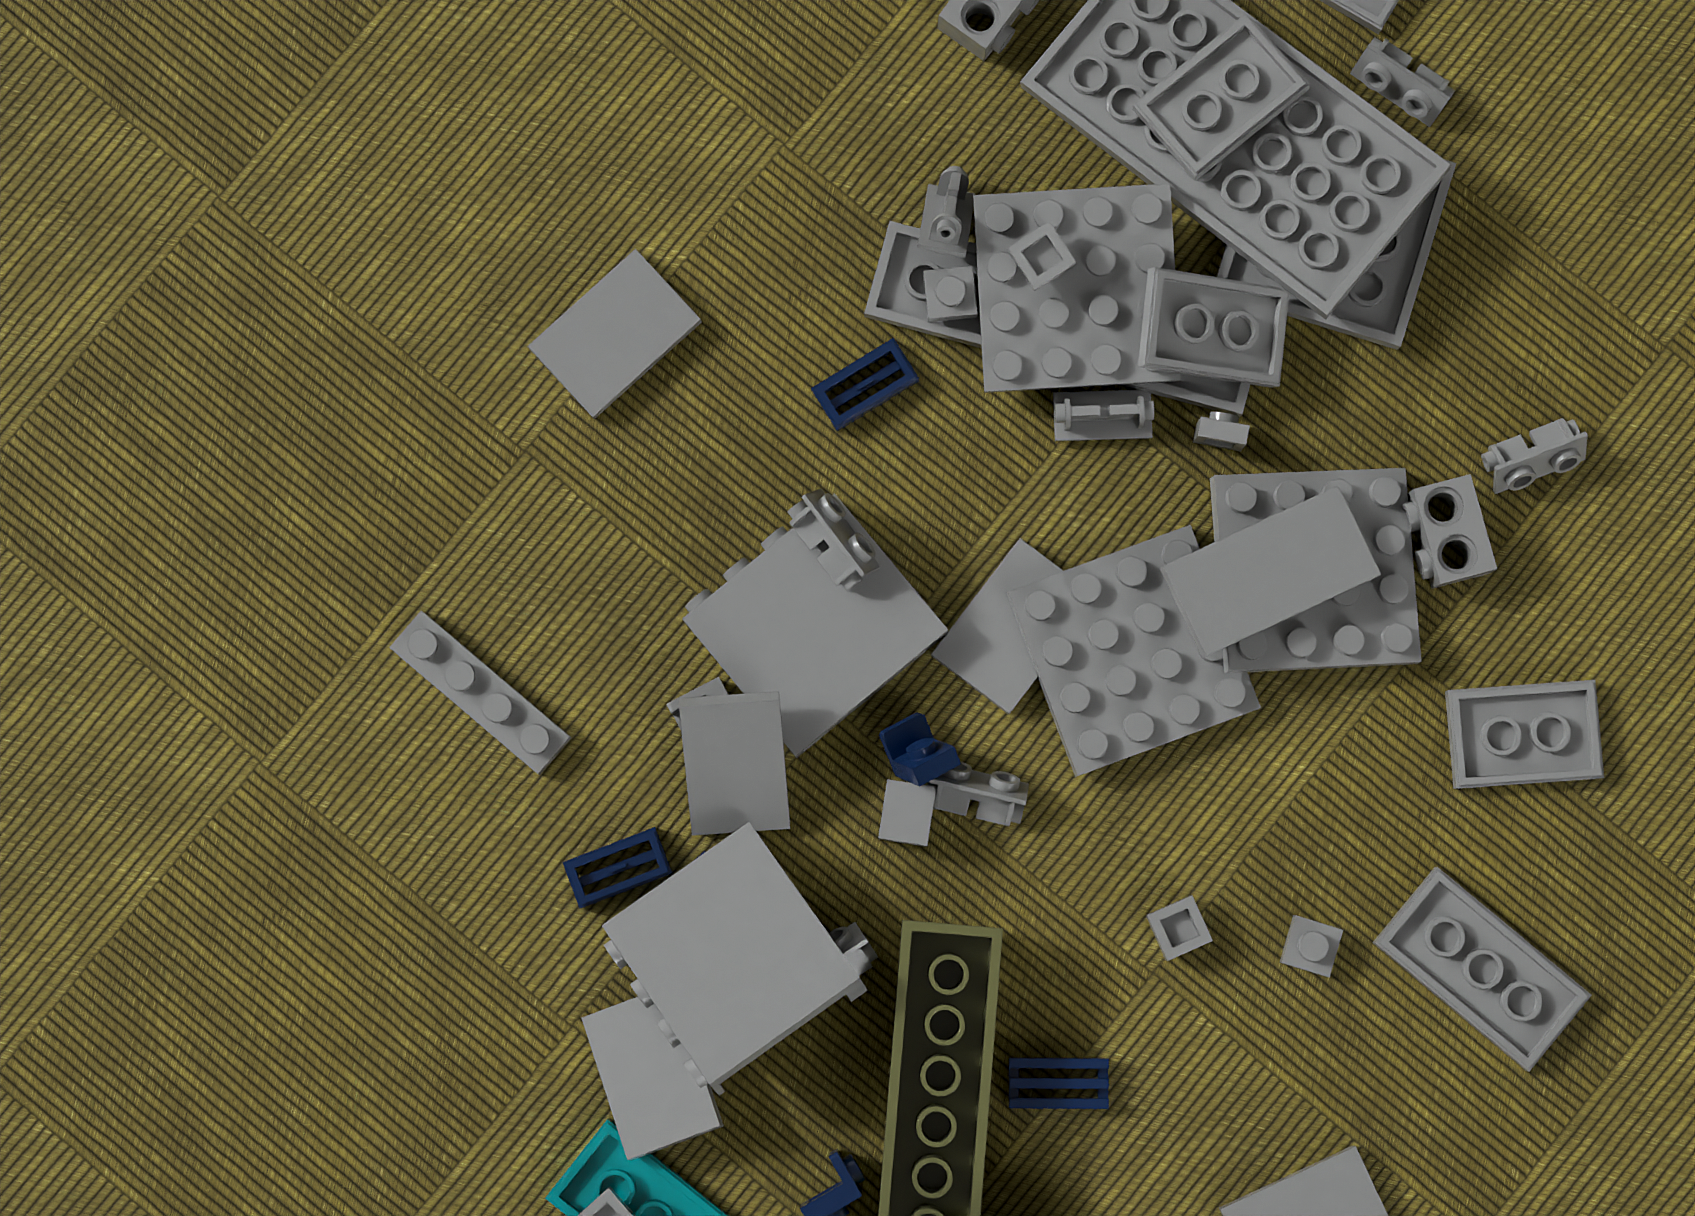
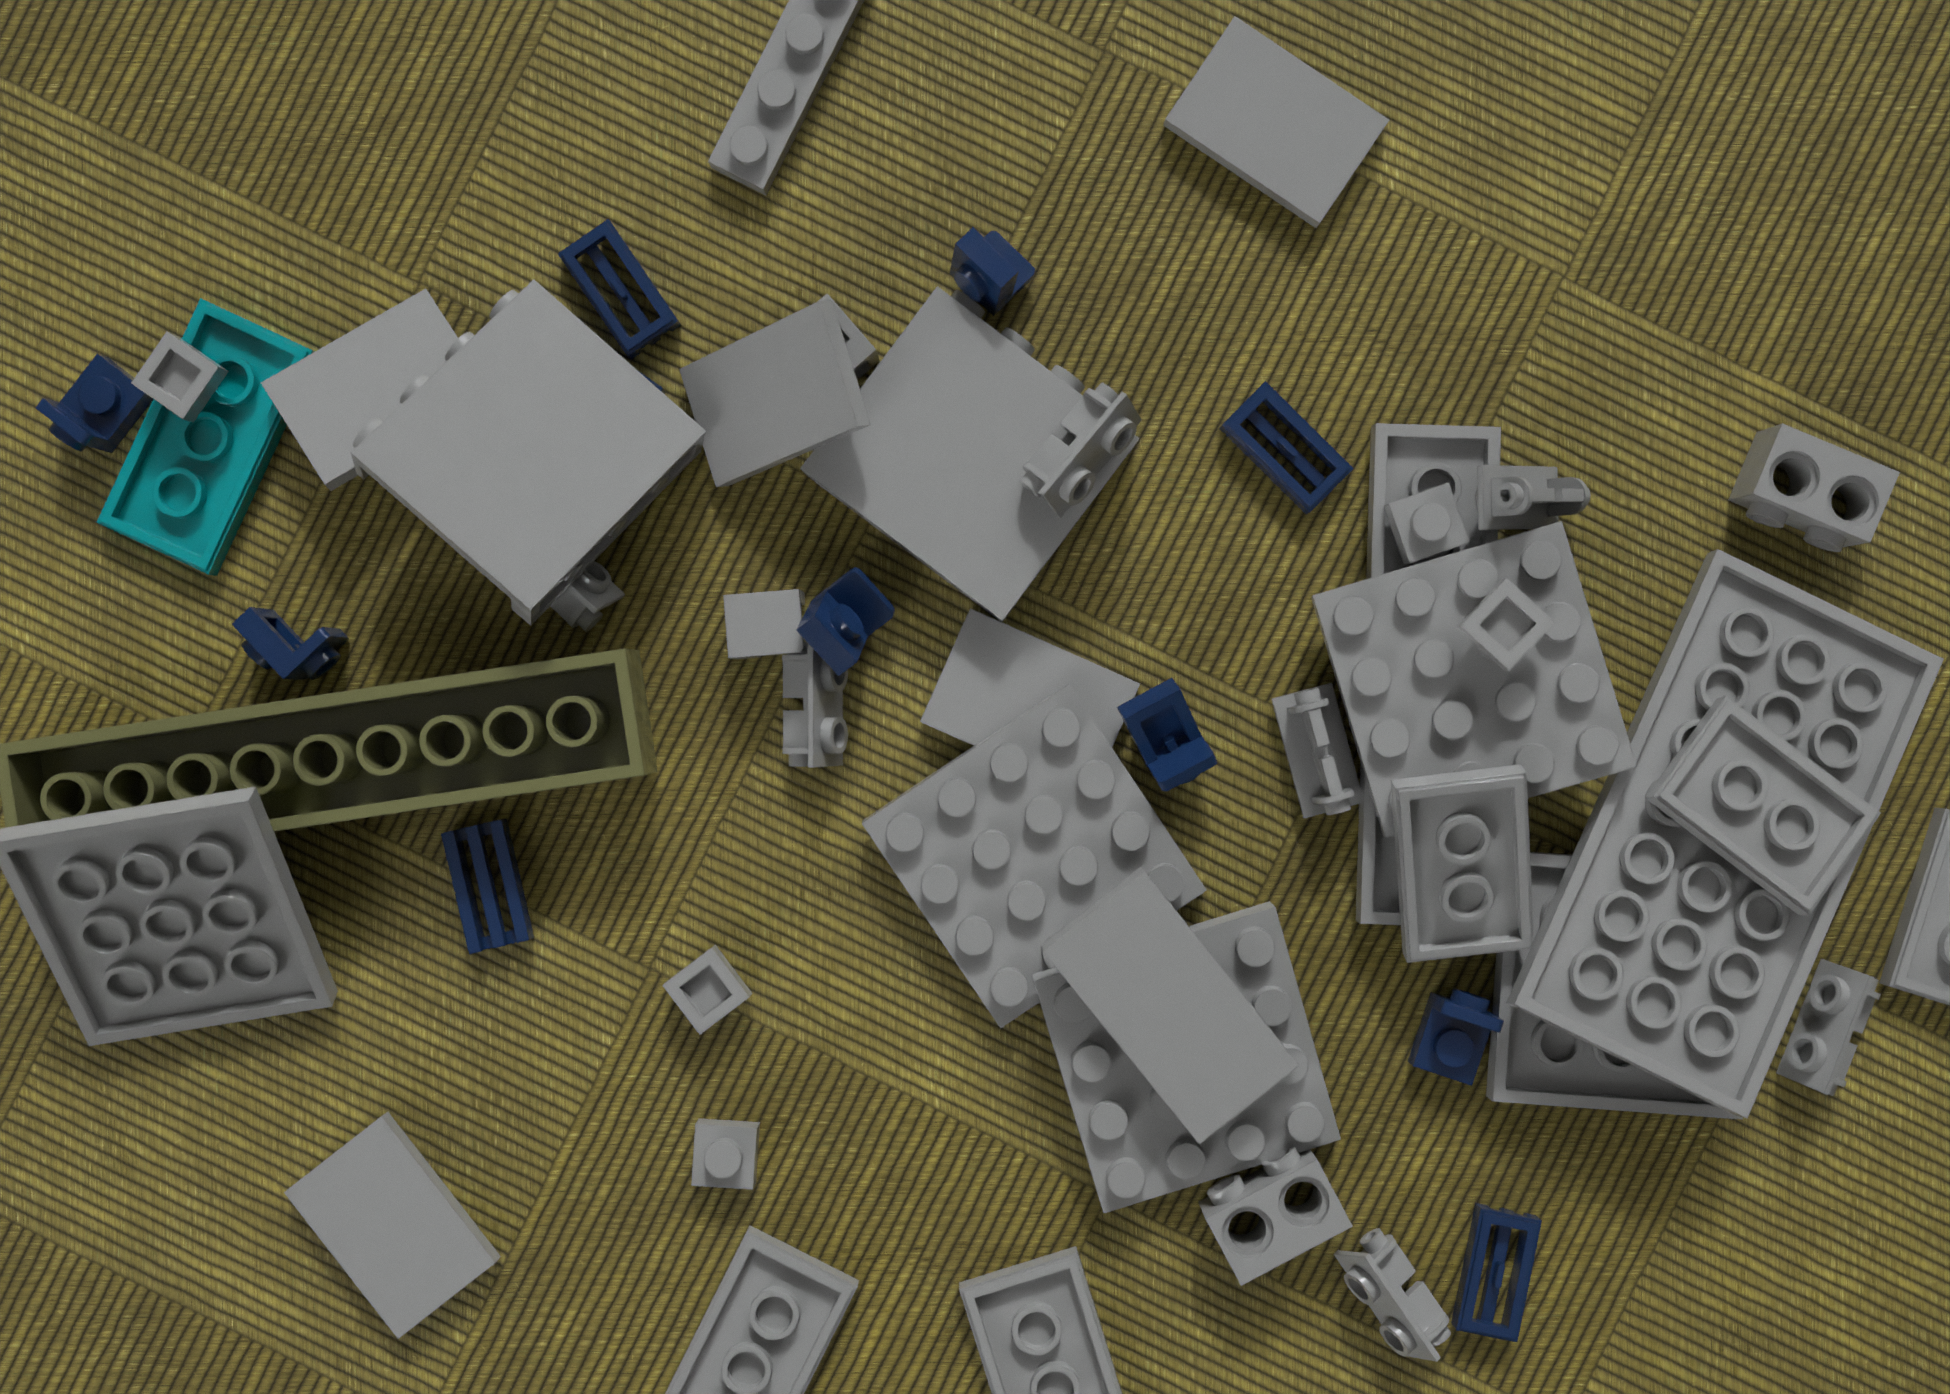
camera: 75 degrees right, 5 degrees up
(676, 576) = (989, 269): none -> dark blue bracket
(1064, 526) = (1167, 735): none -> dark blue bracket
(1221, 431) = (1332, 902): light grey plate -> none
(1345, 363) = (1453, 1035): none -> dark blue bracket
(1526, 390) = (1472, 1268): none -> dark blue tile

